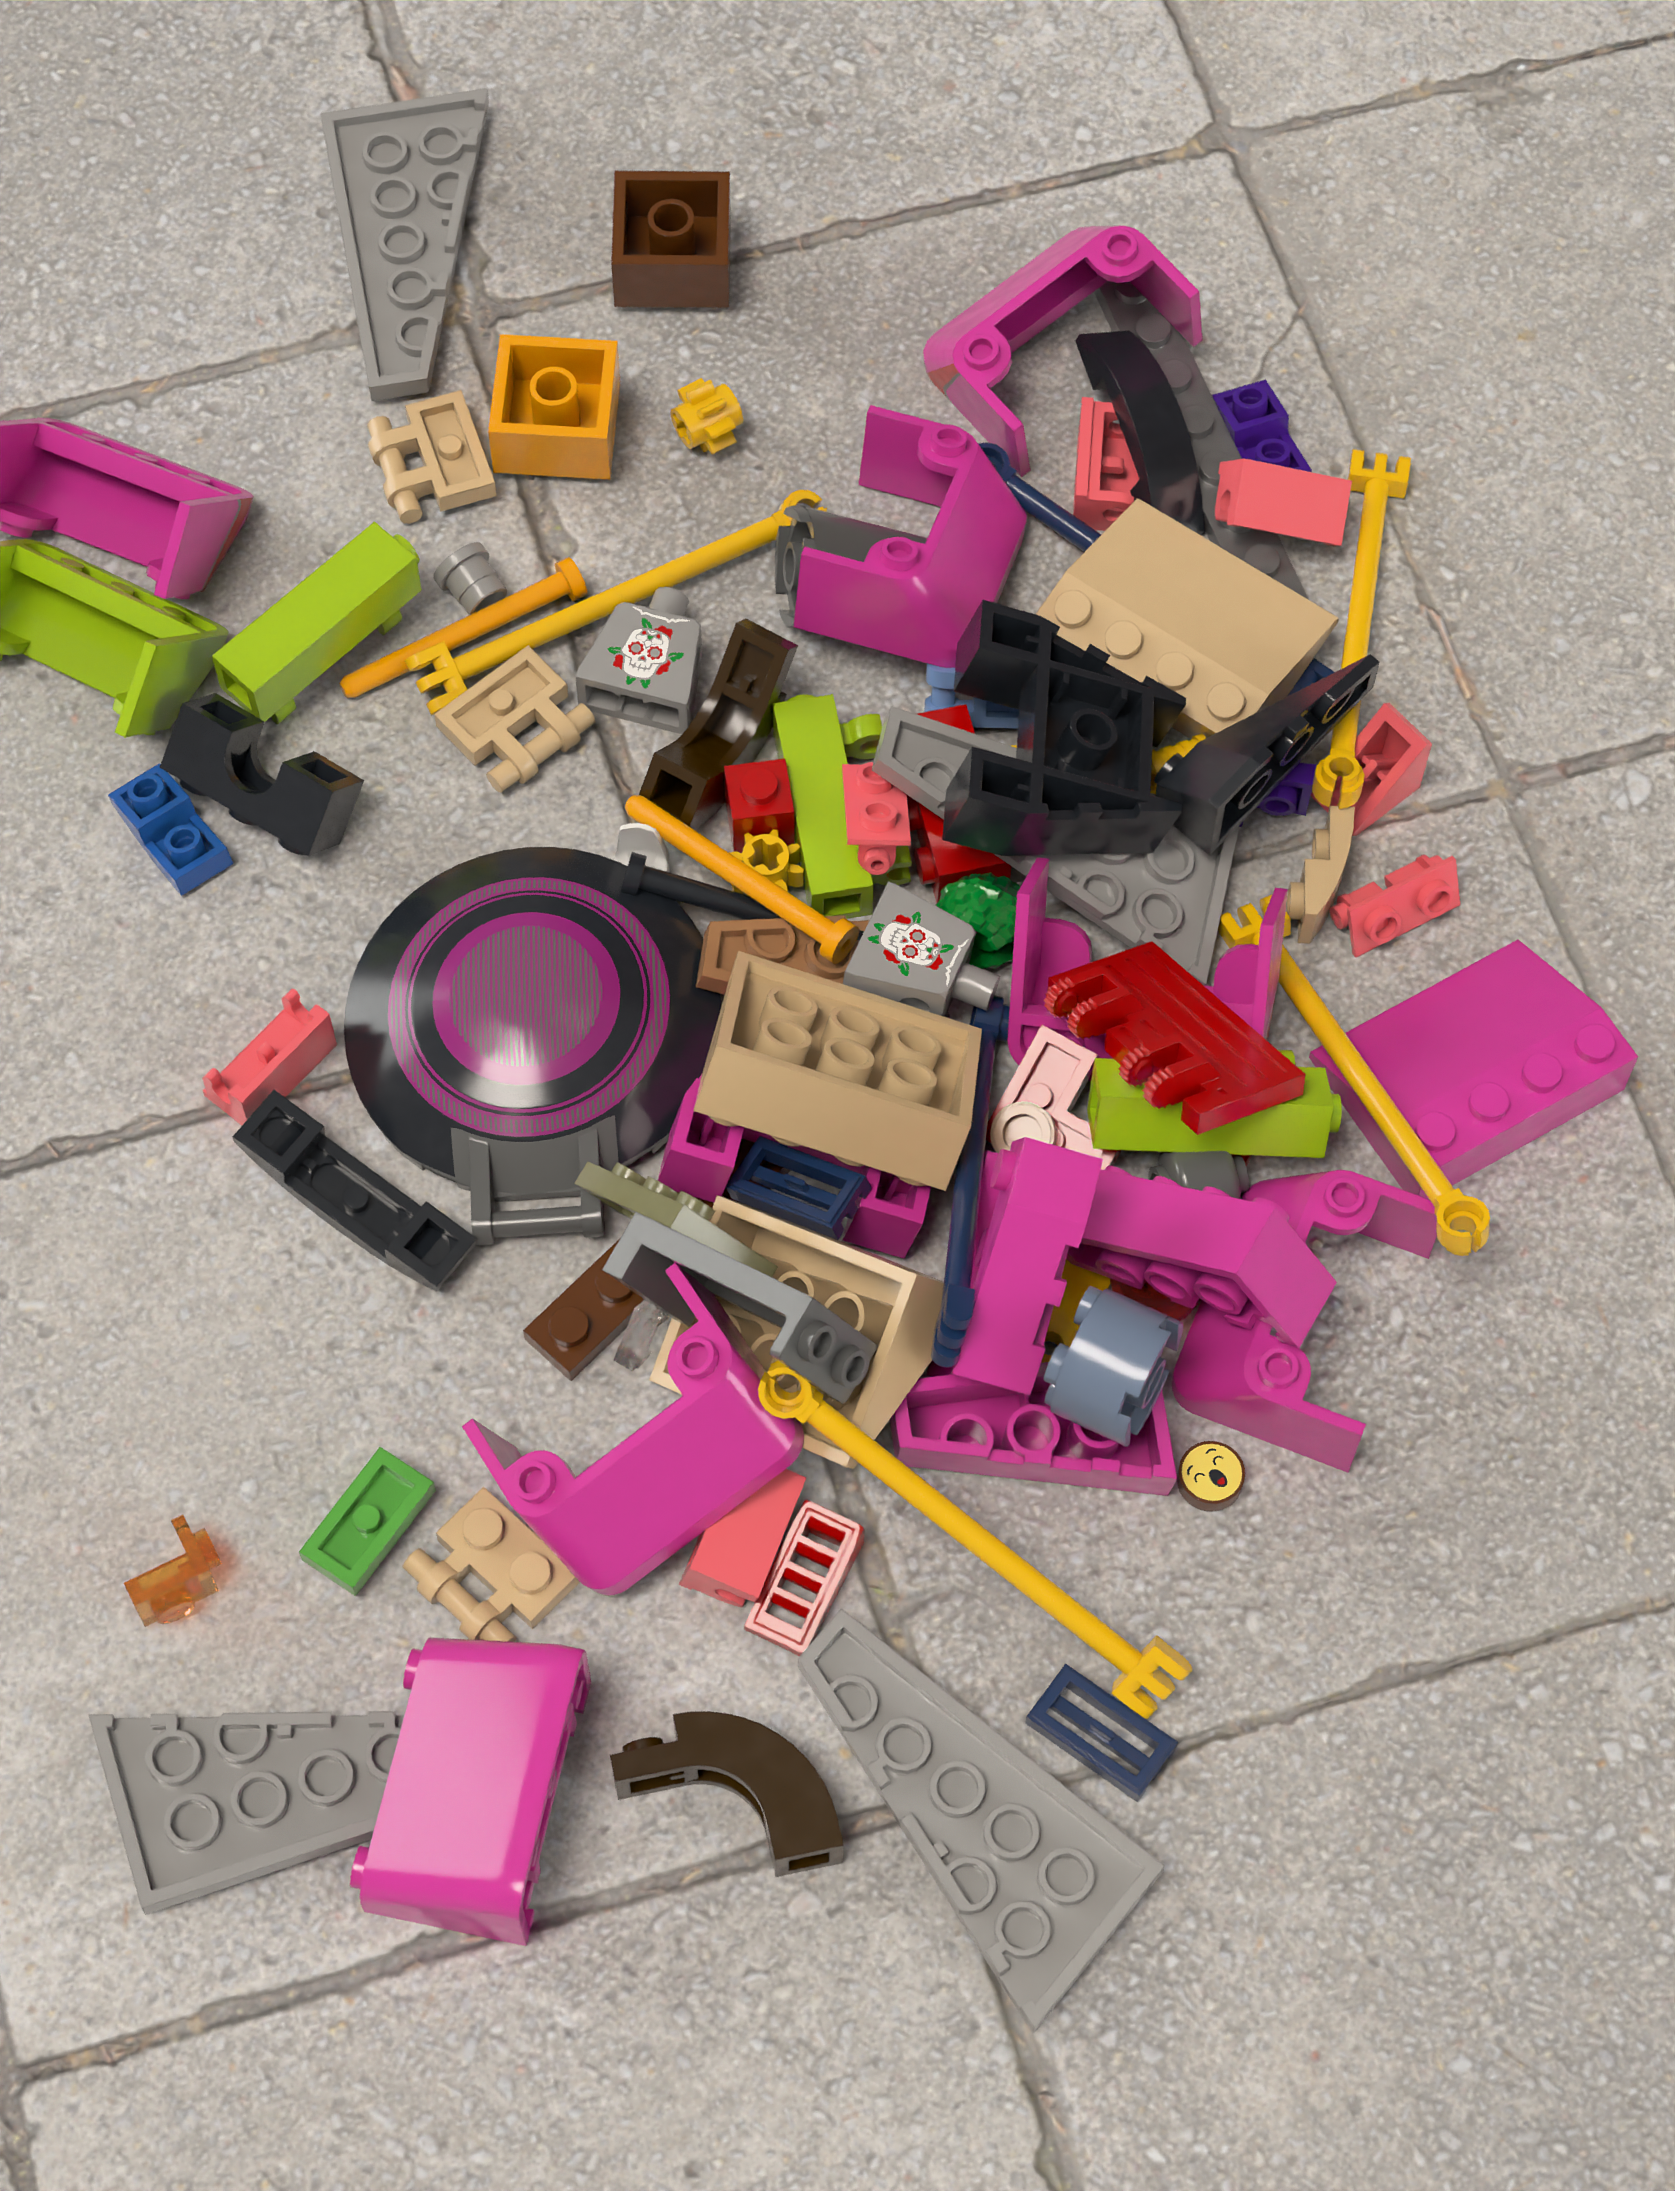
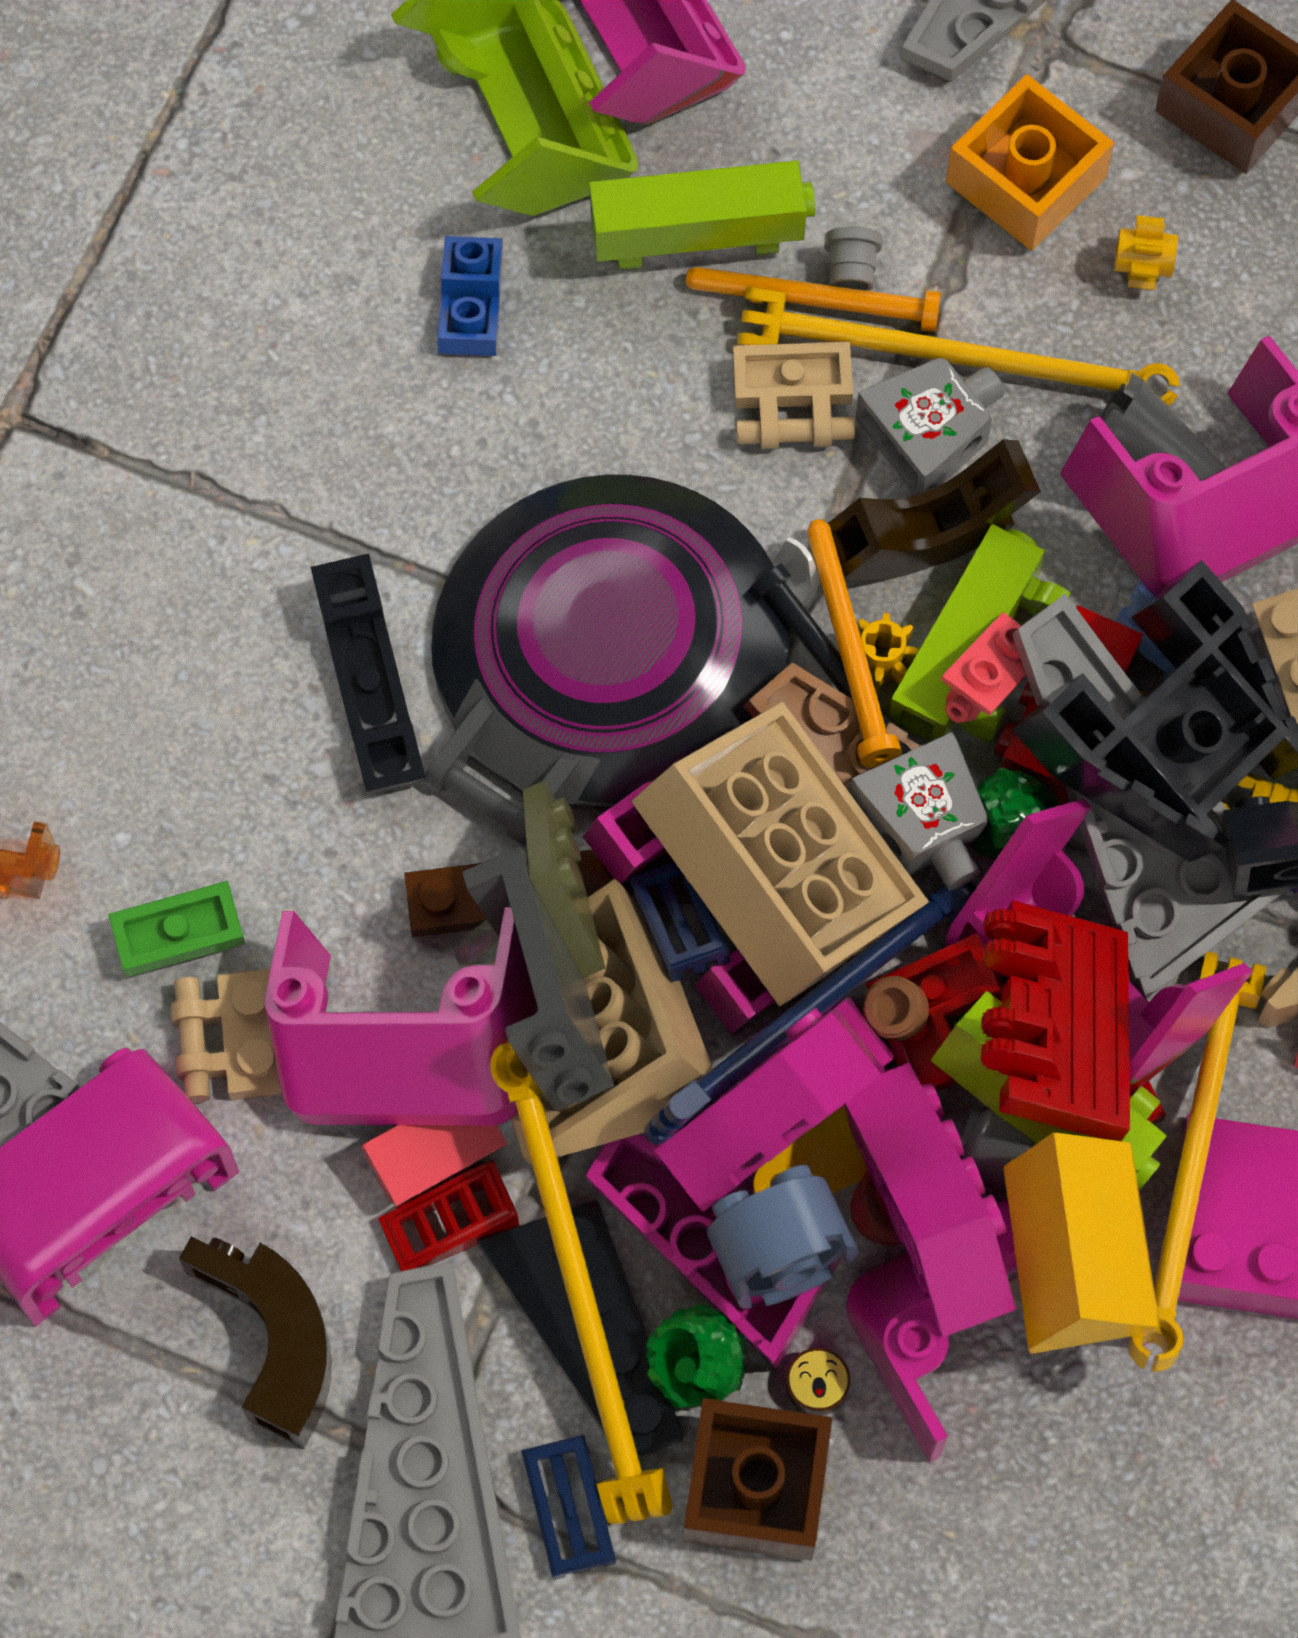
camera: 40 degrees right, 5 degrees up
(218, 758) = (572, 343): black arch -> none
(273, 1059) = (396, 530): coral hinge -> none
(449, 450) = (922, 143): tan plate -> none
(759, 801) = (916, 593): red brick -> none
(931, 1569) = (534, 1280): none -> black wing
(1107, 1526) = (696, 1356): none -> green piece
(1239, 1583) = (757, 1479): none -> reddish brown brick
(1344, 1192) = (1080, 1242): none -> yellow slope

